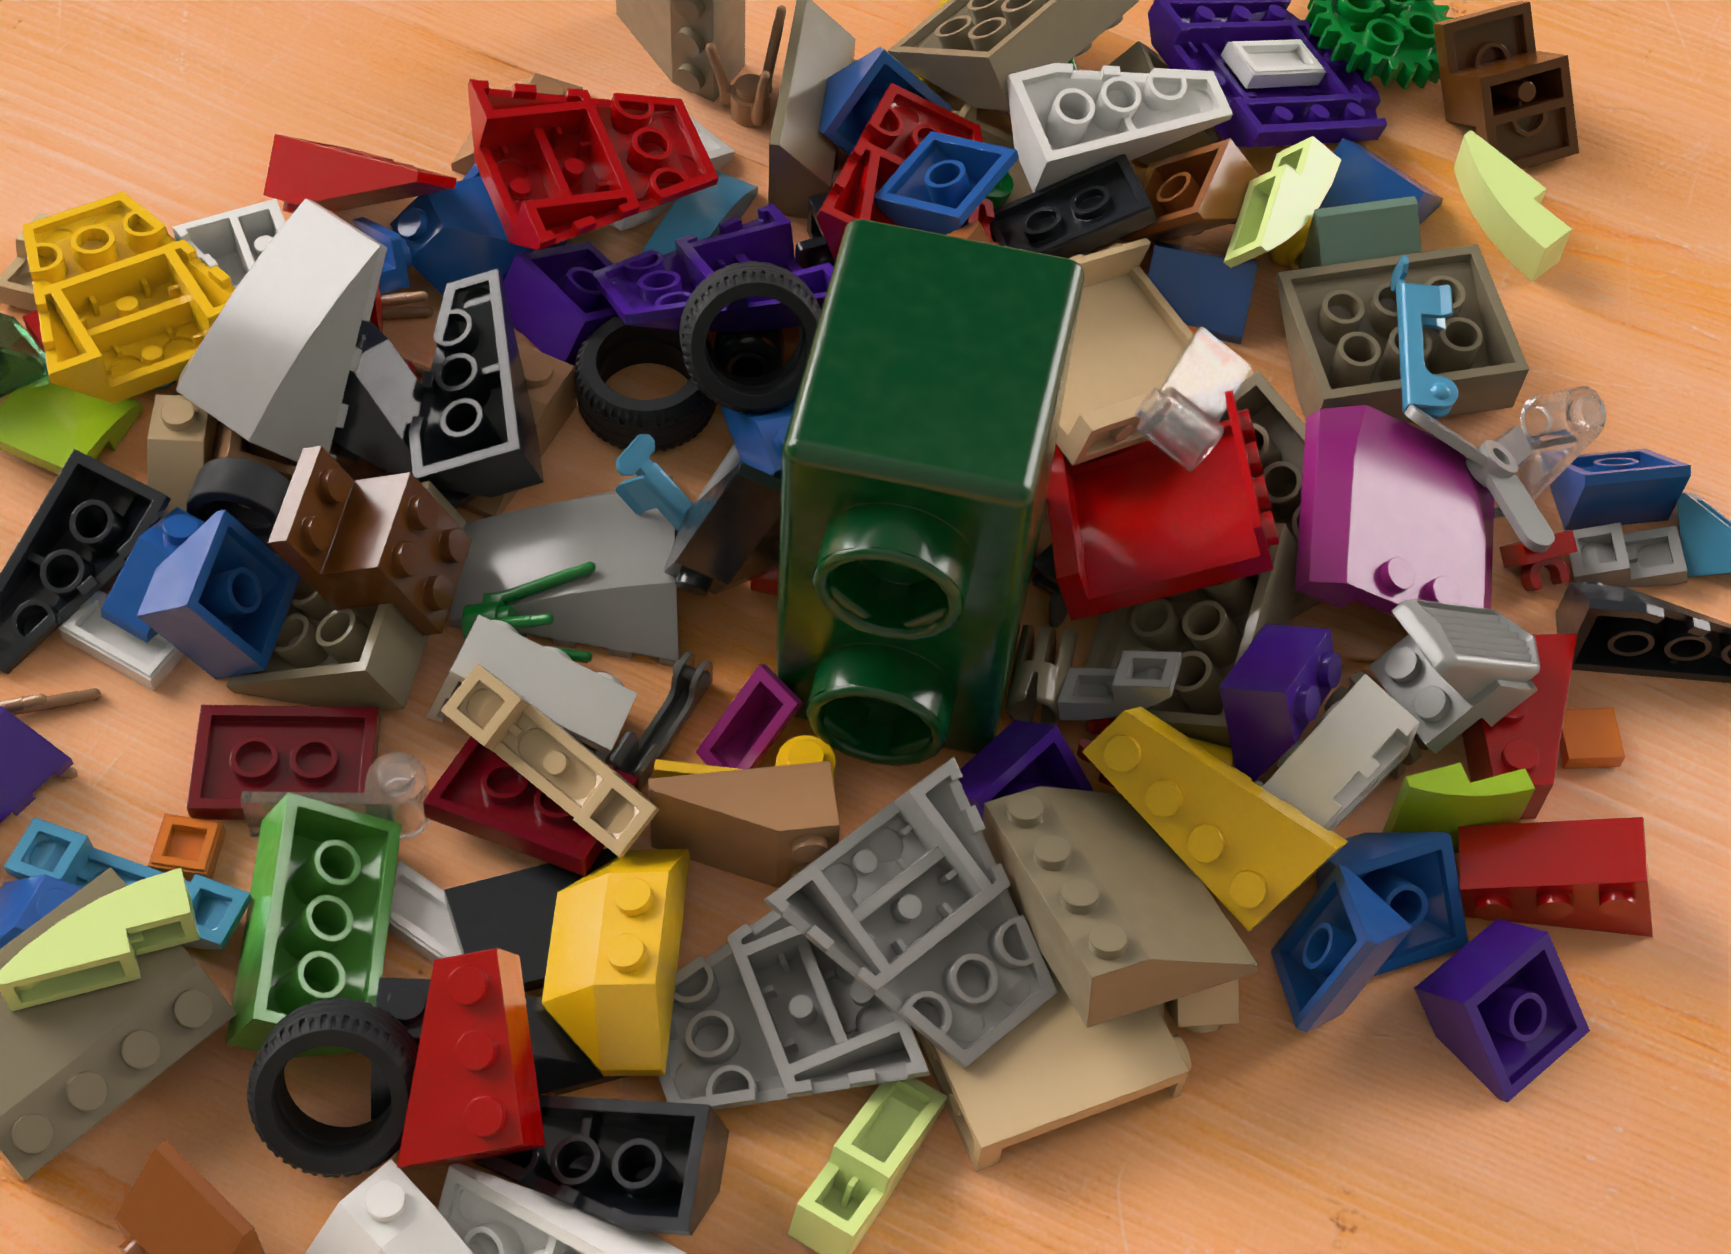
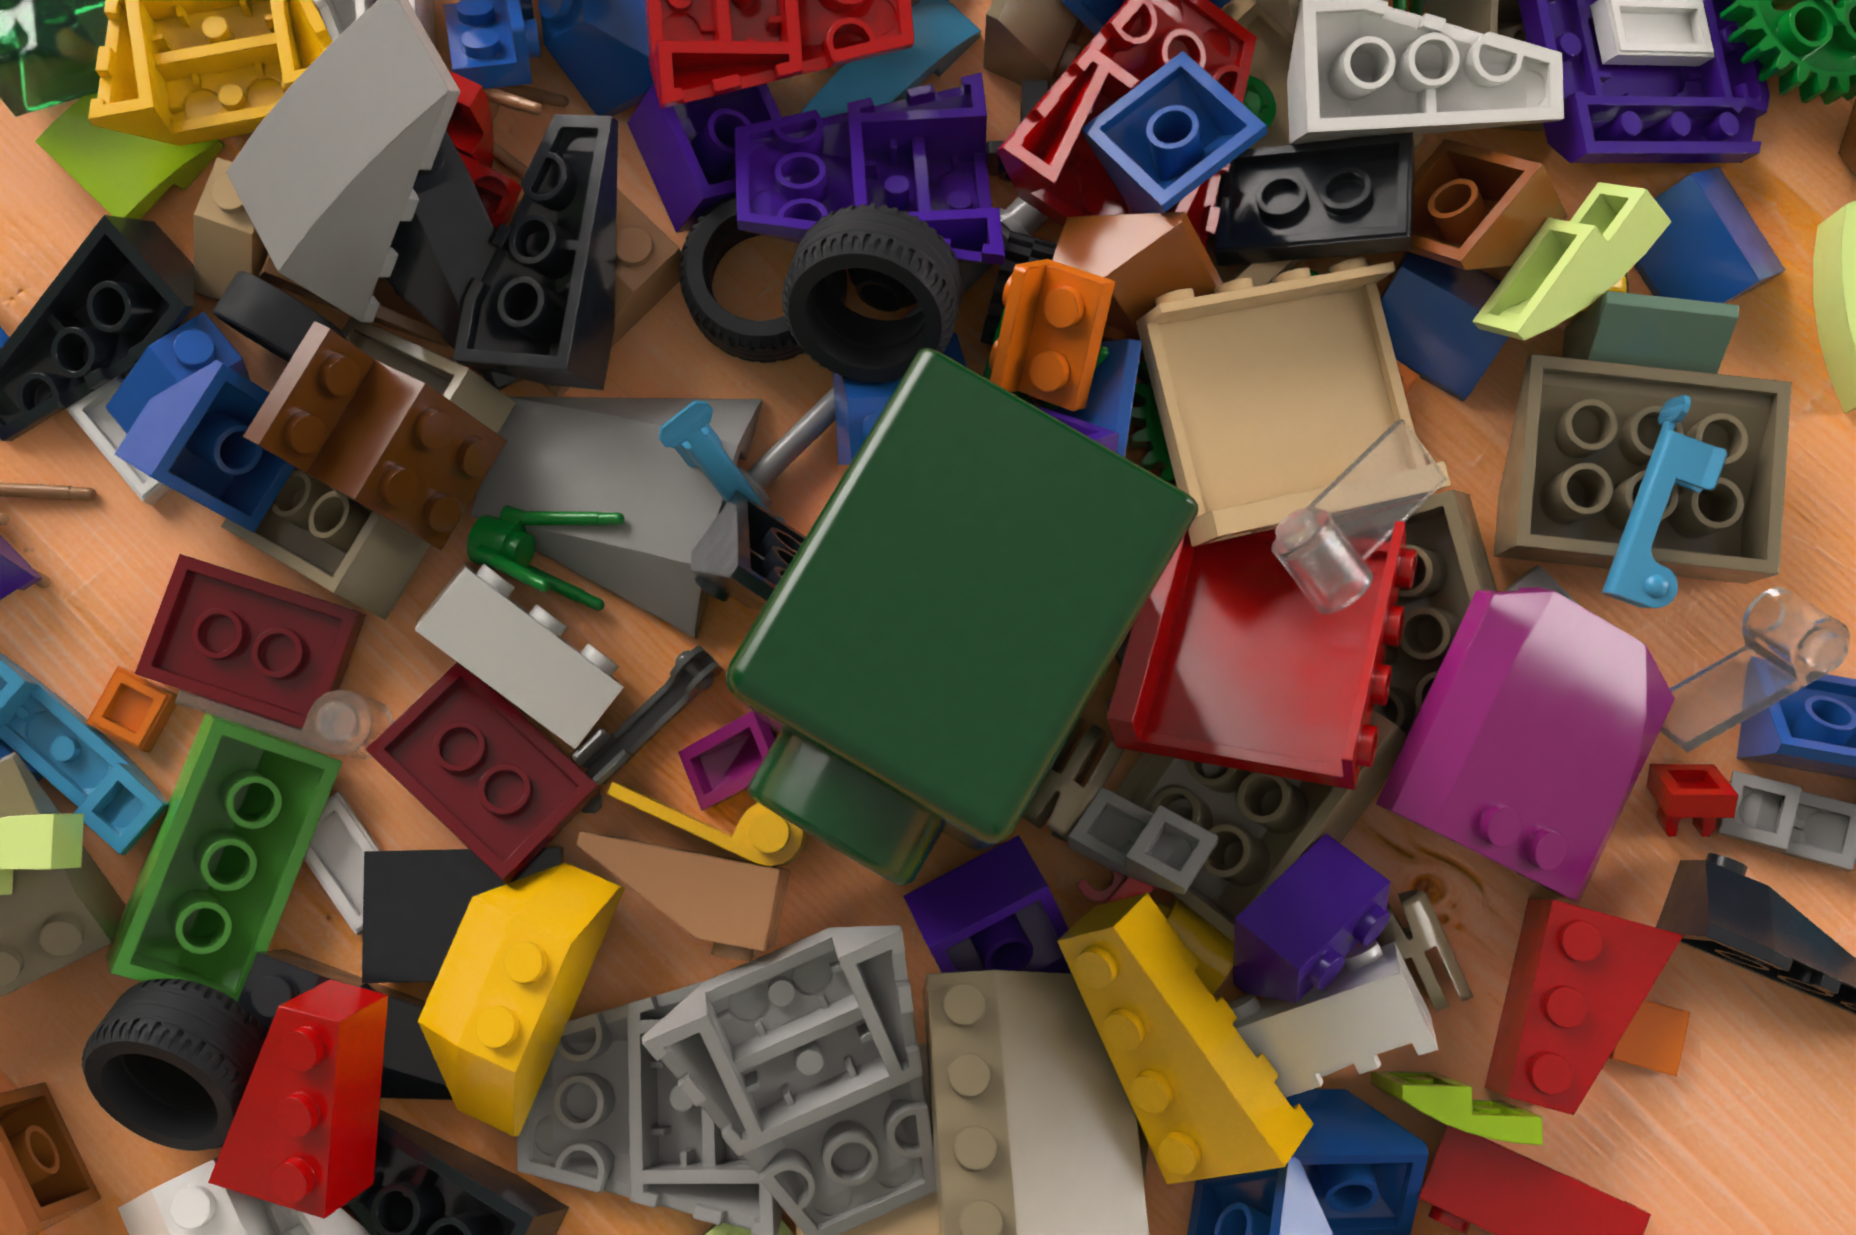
camera: 25 degrees right, 25 degrees up
(551, 759) = (504, 759): tan slope -> none
(1457, 667) = (1525, 954): light grey piece -> none
(1496, 468) = (1681, 692): light grey piece -> none

